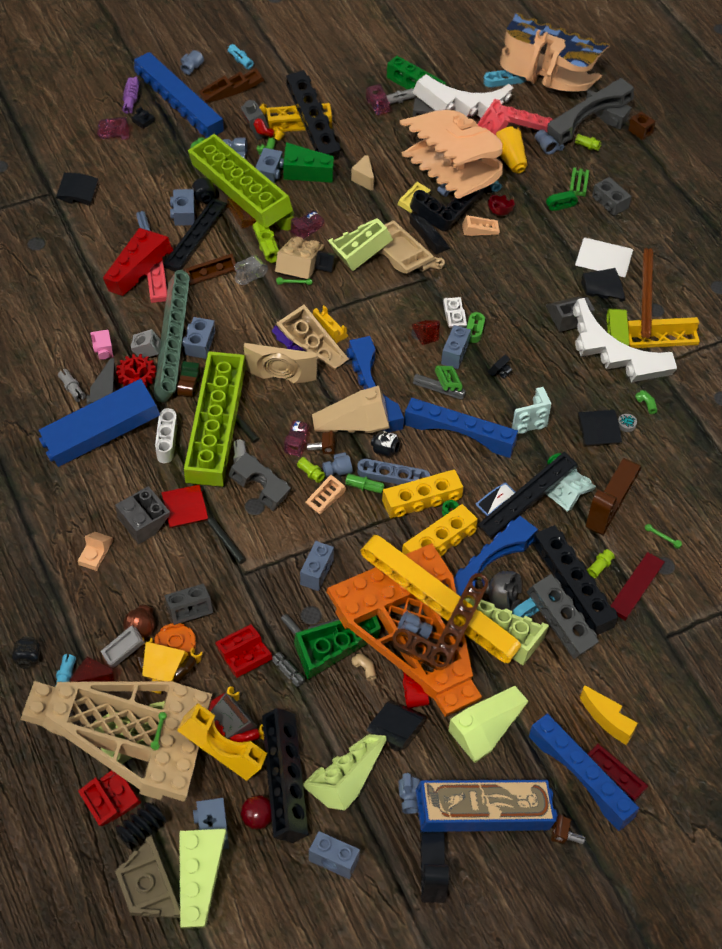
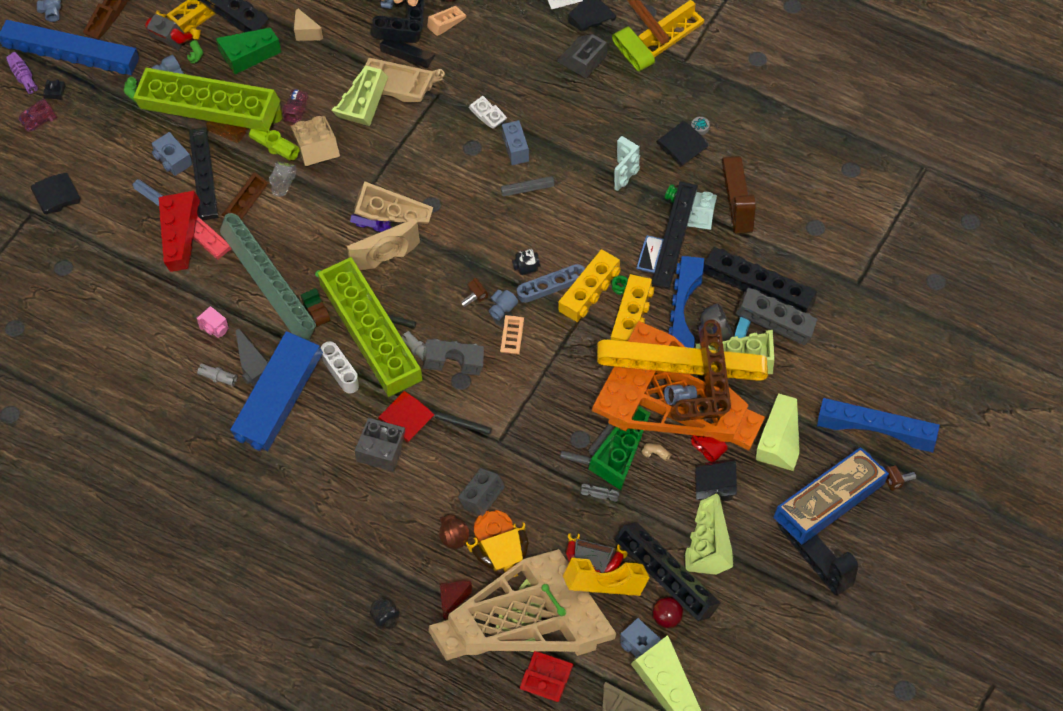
camera: 30 degrees left, 5 degrees up
(66, 669) = (429, 610): medium azure pin -> none
(95, 550) = (364, 499): light nougat slope -> none
(122, 646) = (458, 558): light grey tile -> none
(140, 823) = (588, 679): black piece -> none
(145, 370) = (264, 328): red gear -> none
(146, 343) = (258, 298): light grey brick -> none
(199, 337) = (291, 265): sand blue brick -> none
(203, 190) = (176, 126): black head -> none
(243, 650) = (553, 500): red slope -> none
(270, 163) = (214, 66): sand blue brick -> none
(279, 280) = (314, 172): bright green hinge -> none
(296, 437) = (449, 302): clear pink leg -> none
(313, 471) = (483, 321): lime pin -> none
(317, 565) = (556, 396): sand blue brick -> none
(325, 261) = (341, 130): black tile -> none
(329, 324) = (395, 186): yellow hinge -> none
(334, 855) = (750, 604): sand blue brick -> none
(358, 412) = (485, 249): tan wedge -> none
(363, 356) = (505, 235): blue arch -> none
(364, 483) = (535, 306): bright green axle -> none
(405, 200) = (365, 22): light yellow plate -> none
(407, 792) = (766, 523): sand blue piece -> none
(427, 331) = (478, 142): clear red slope -> none
(445, 378) = (529, 176): bright green tile -> none
(476, 327) = (518, 114): bright green beam -> none
(495, 437) = (607, 202): blue arch -> none
(500, 367) = (565, 139): black tile -> none
(595, 340) = (648, 71): white arch -> none
(602, 560) = (769, 253): lime pin -> none
(608, 715) = (863, 371): yellow slope -> none
(620, 774) = (905, 409): dark red tile -> none
(637, 585) = (808, 256): dark red tile -> none
(650, 401) = (707, 98): bright green arm -> none
(677, 544) = (812, 204): bright green hinge -> none

